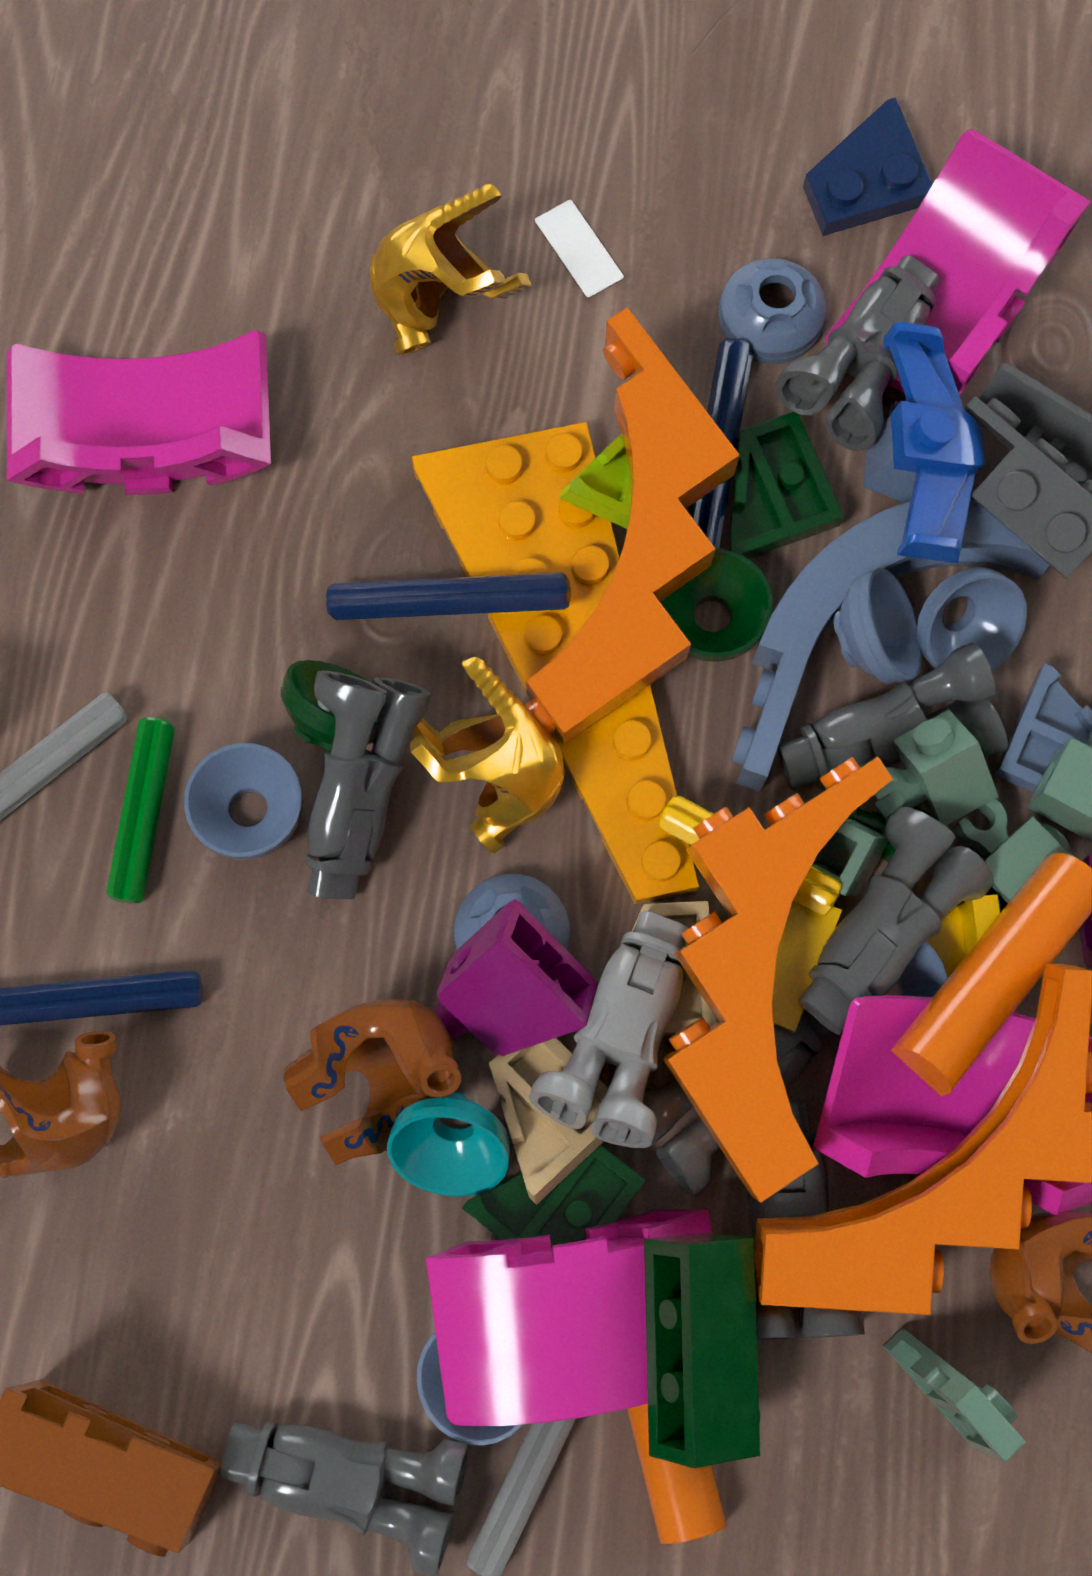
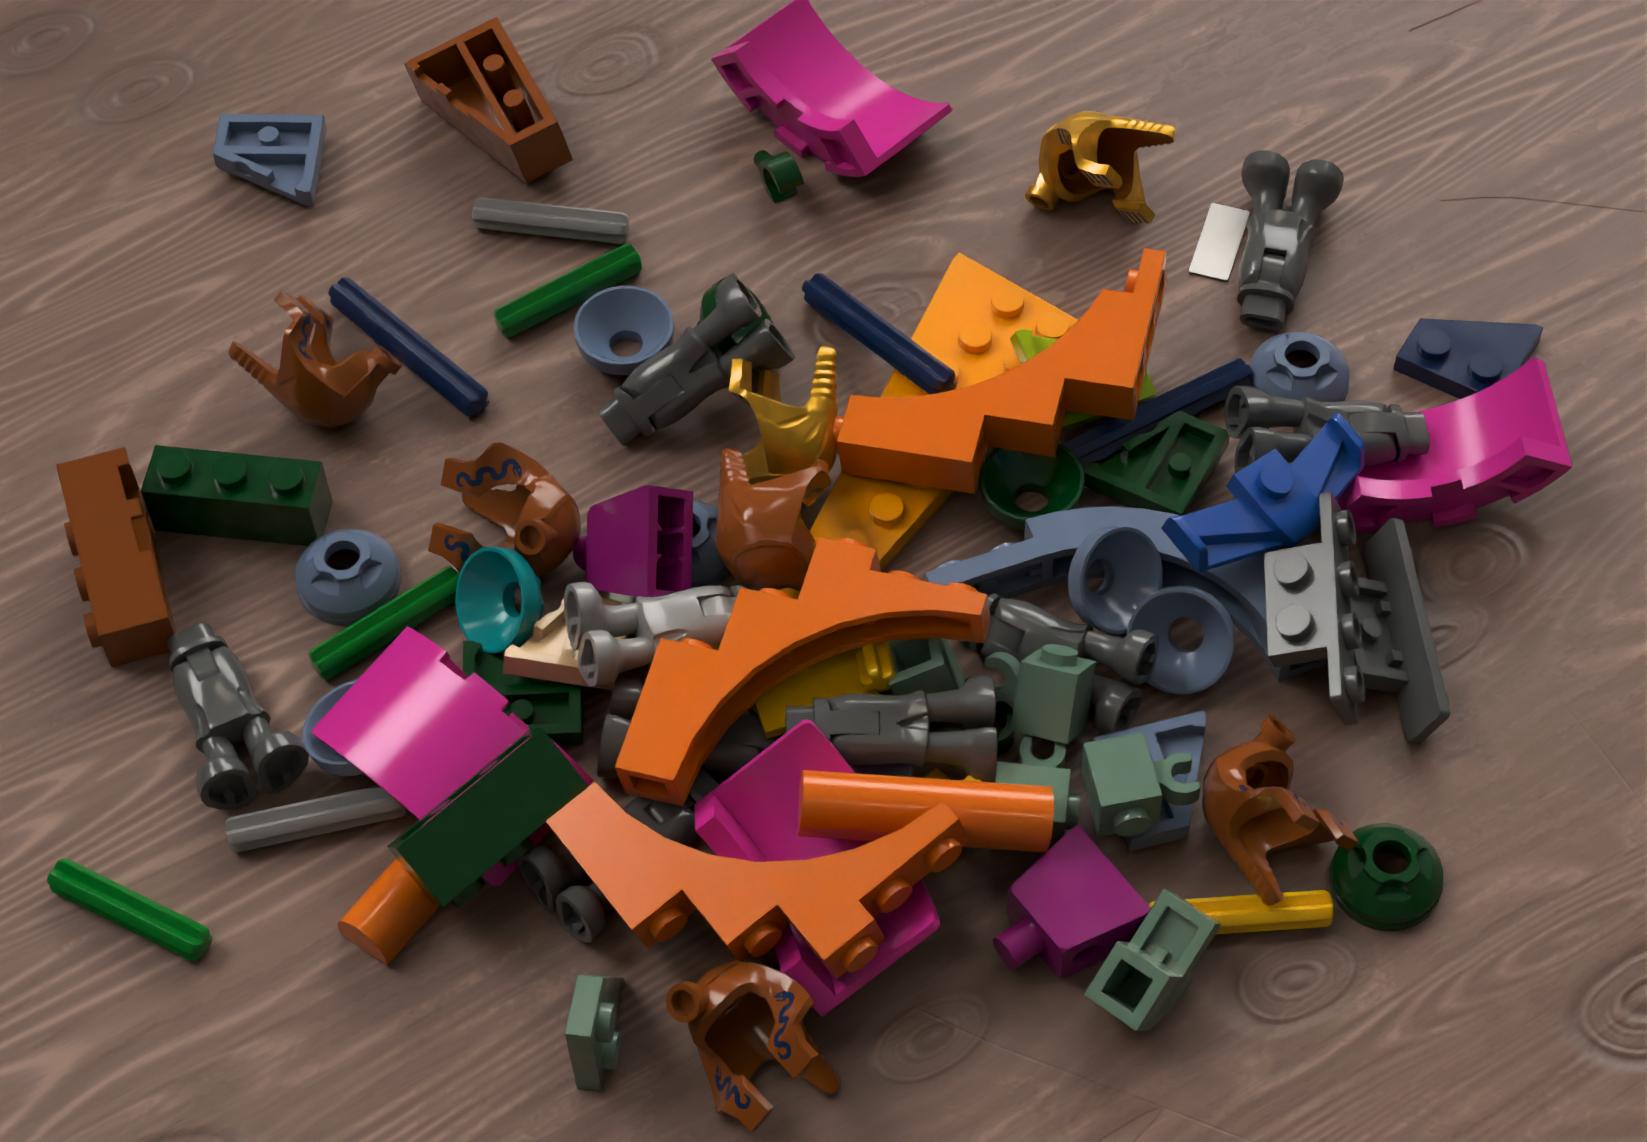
camera: 55 degrees right, 20 degrees down
(112, 1294) = (236, 495): none -> dark green brick
(183, 529) = (779, 174): none -> dark green piece
(319, 1257) = (348, 594): none -> sand blue piece
(370, 1257) = (384, 624): none -> green axle
(602, 868) = (762, 526): none -> dark orange piece
(634, 206) = (1279, 239): none -> dark grey piece

